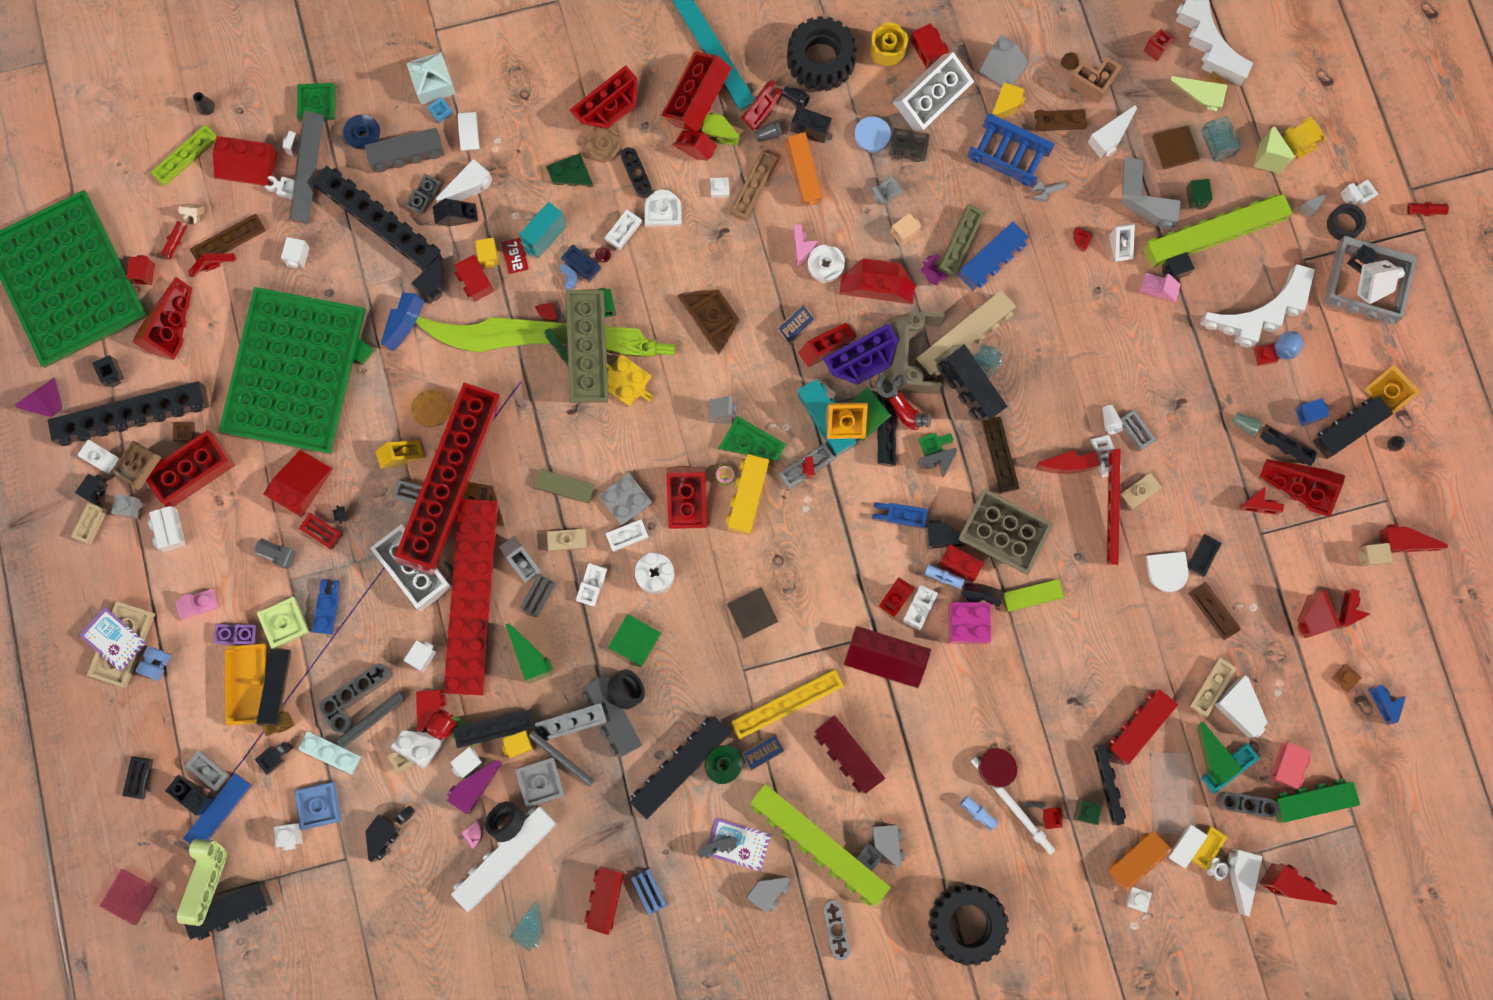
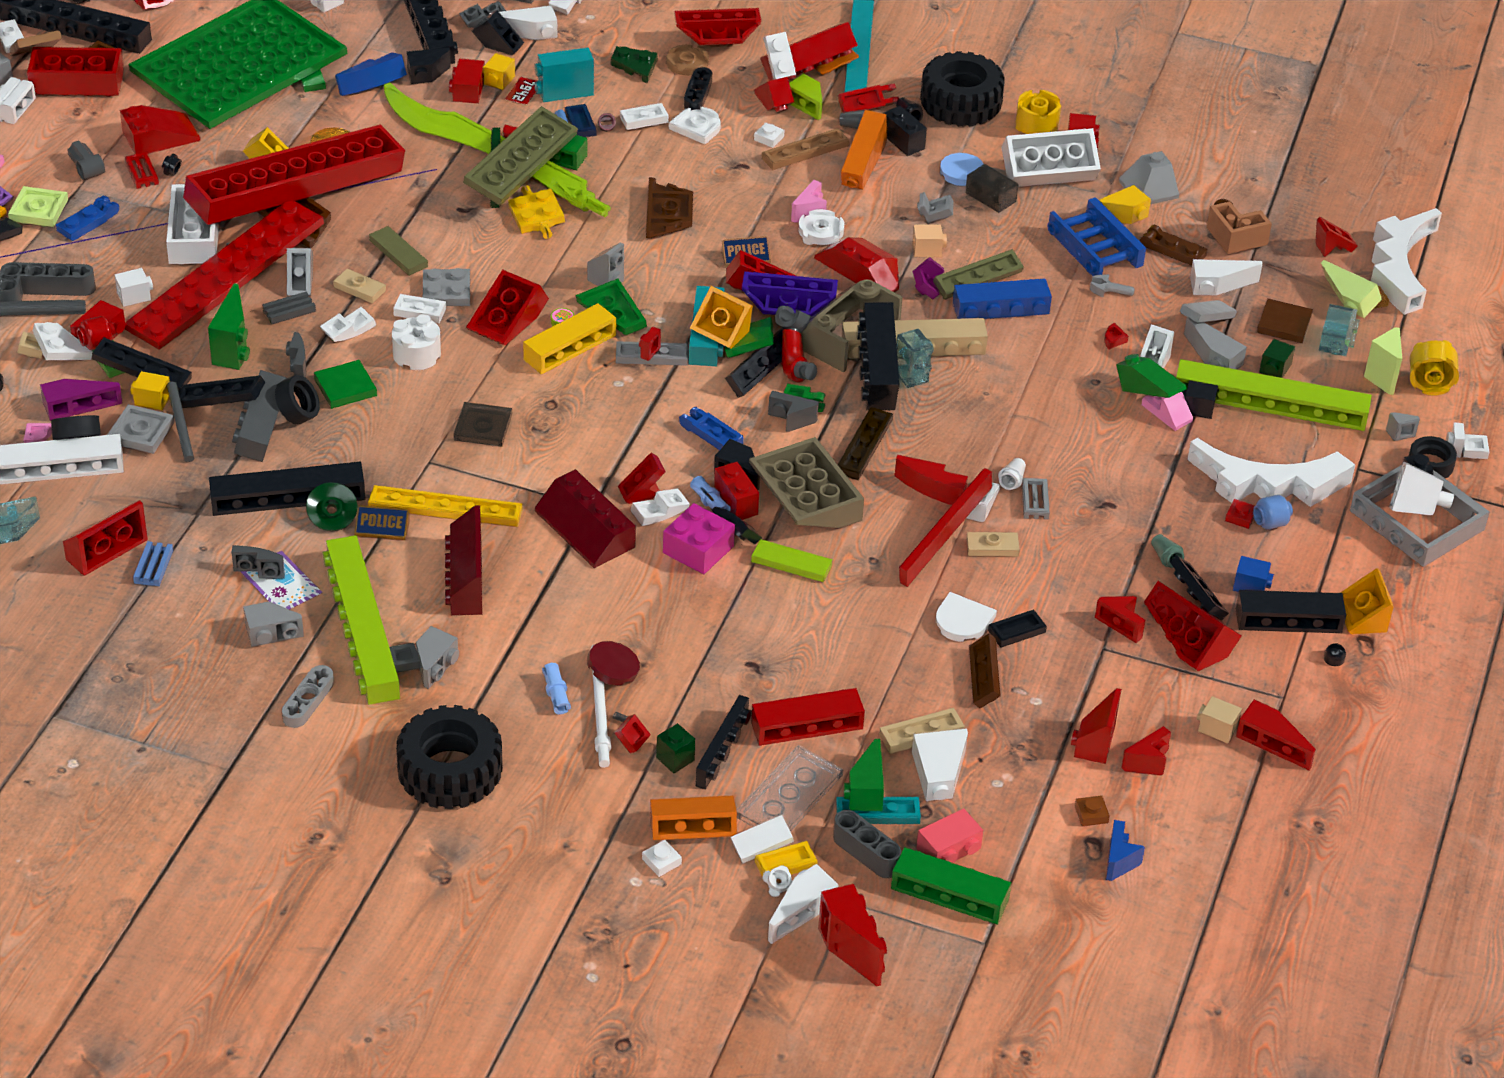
camera: 35 degrees right, 35 degrees down
(466, 763) = (89, 370): white brick -> none
(583, 638) = (296, 351): none -> dark grey slope
(689, 119) = (779, 55): none -> white plate
(1144, 277) = (1147, 377): none -> green slope

